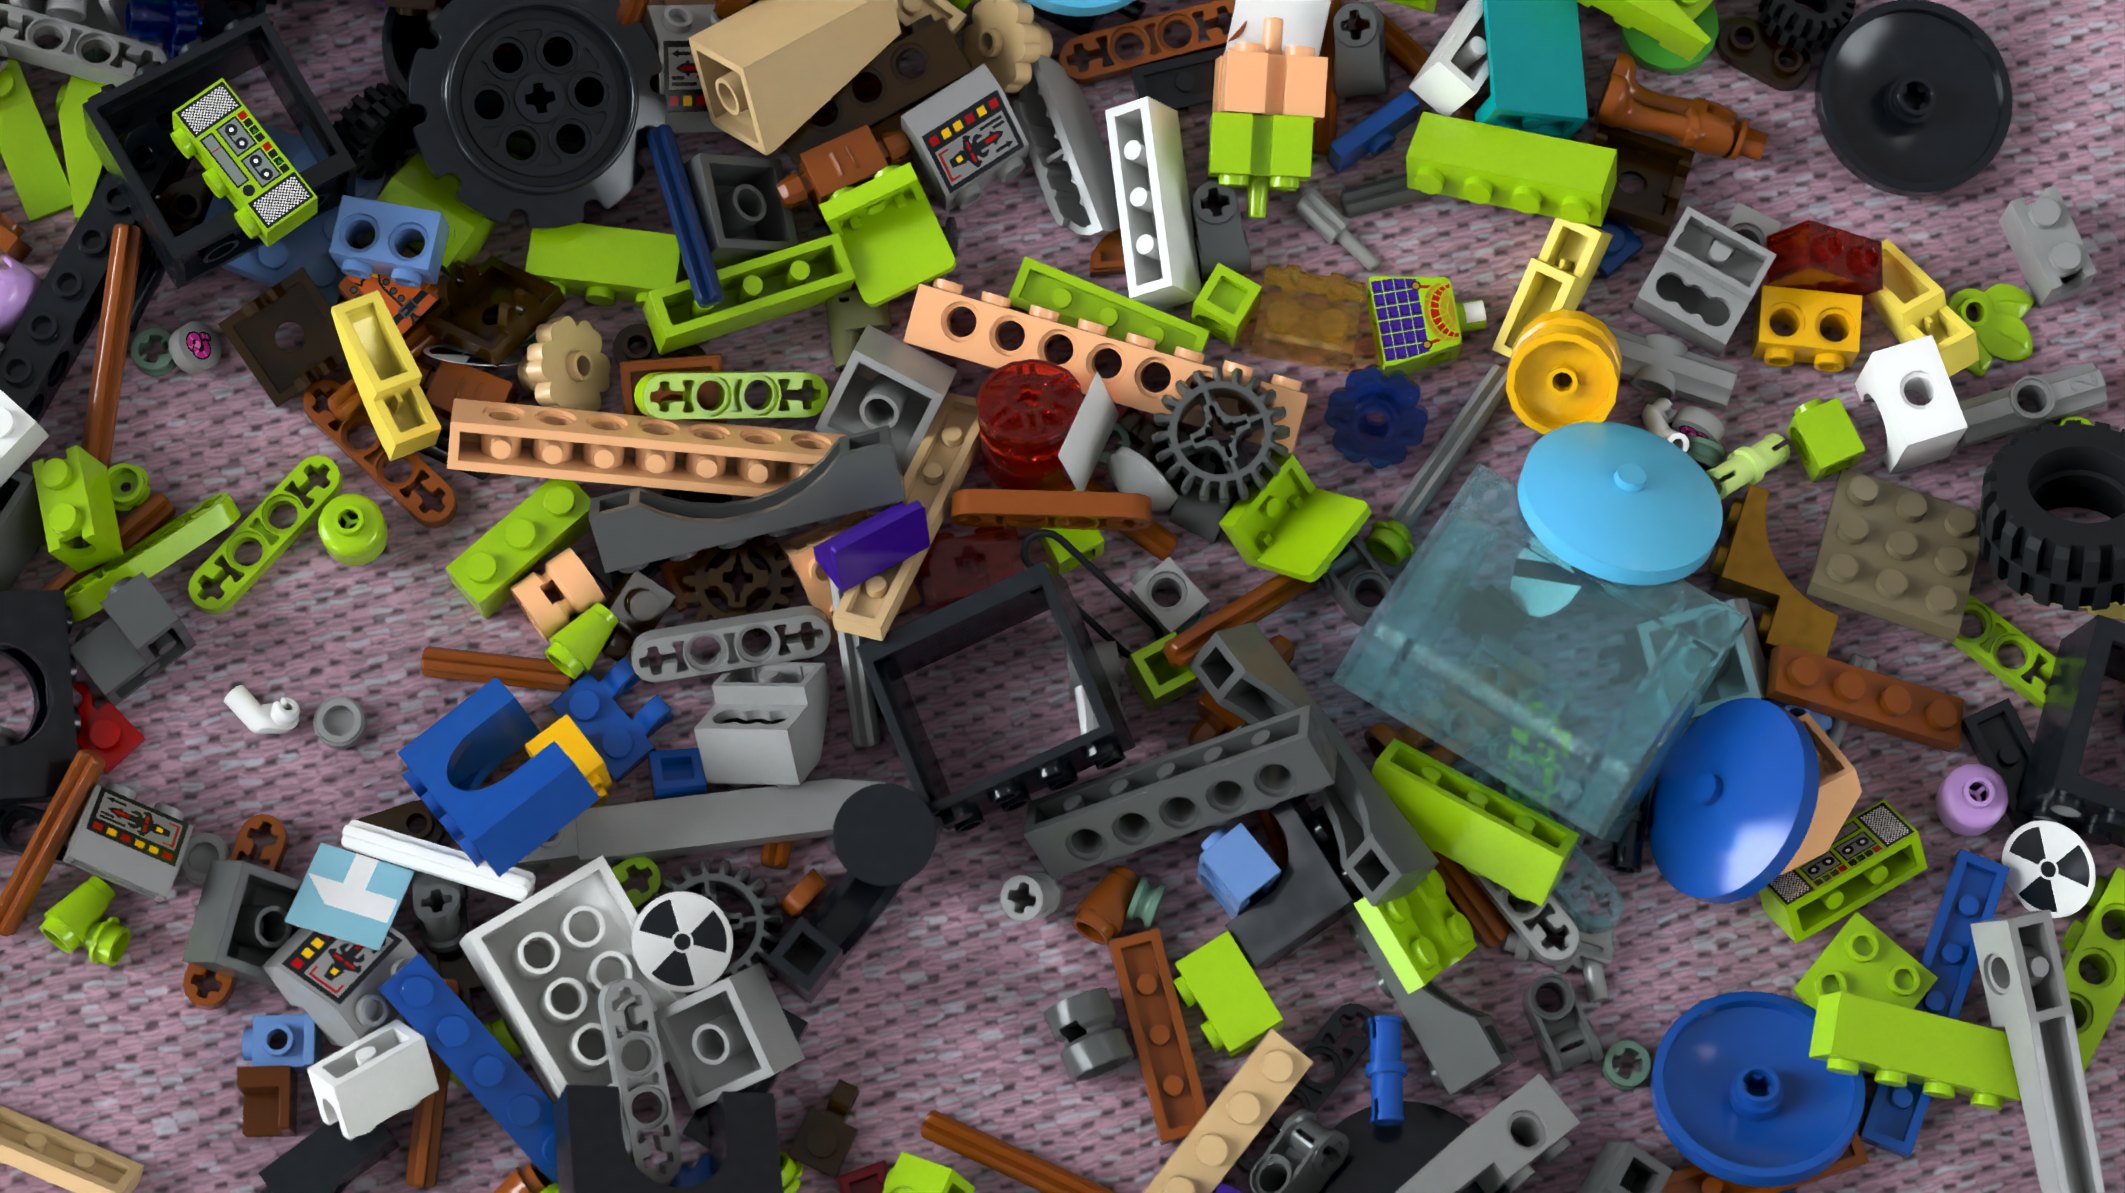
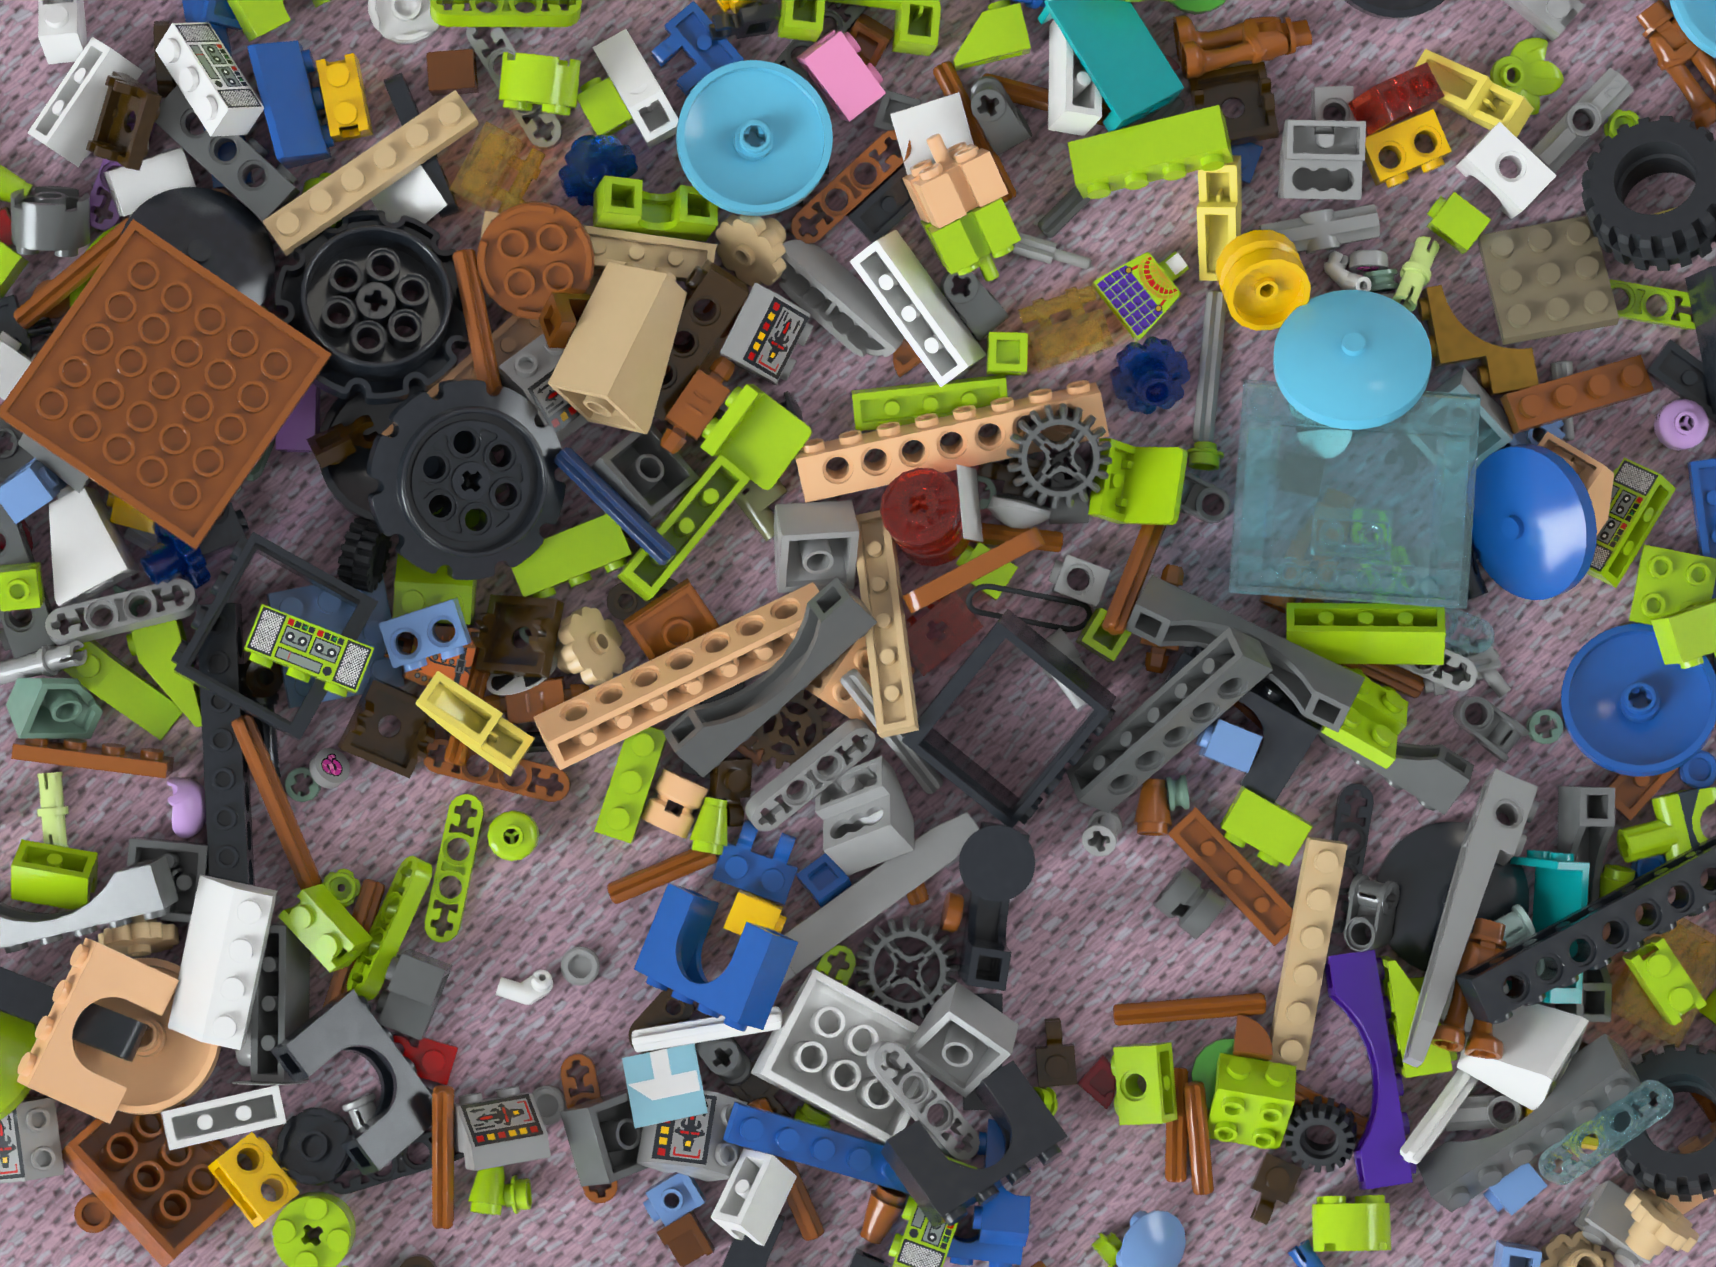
camera: 30 degrees left, 15 degrees up
(682, 942) = (896, 993): white sticker -> none
(731, 398) = (714, 608): lime beam -> none
(874, 545) = (874, 667): dark purple panel -> none
(1373, 133) = (1039, 169): blue plate -> none
(1386, 1070) = (1395, 821): blue pin -> none

